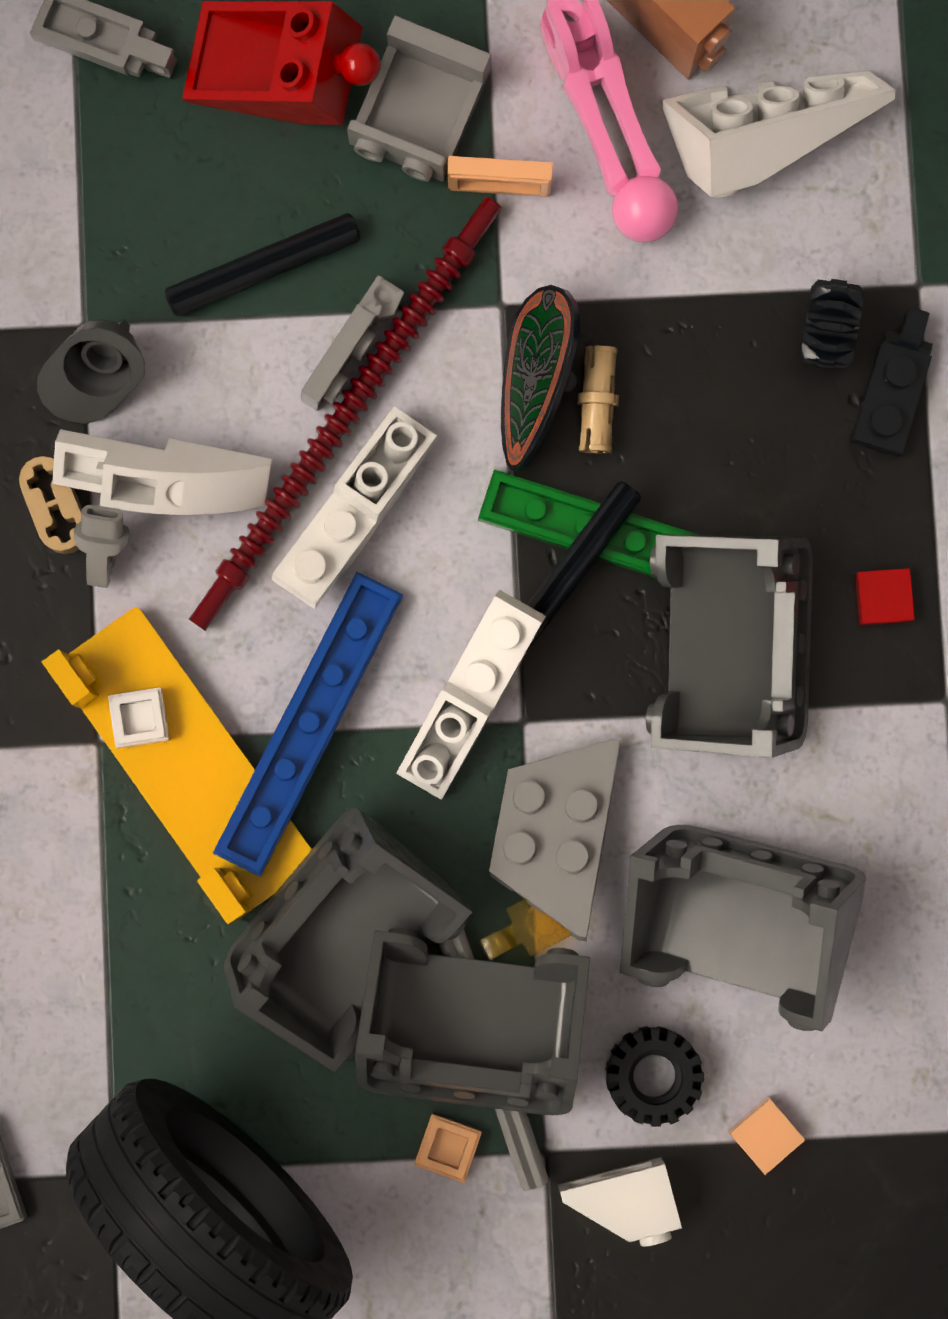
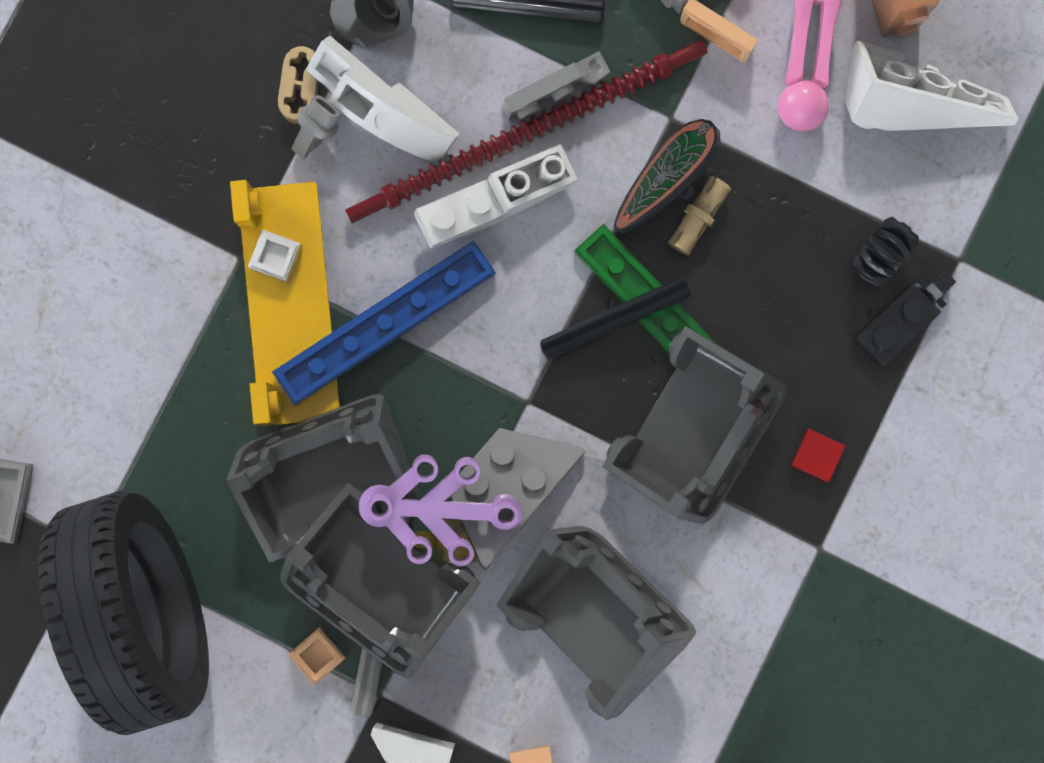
camera: 30 degrees right, 0 degrees up
(471, 694) = (502, 363): white slope -> none
(490, 903) = (433, 509): none -> lavender plant
(683, 1091) = (473, 711): black tyre -> none

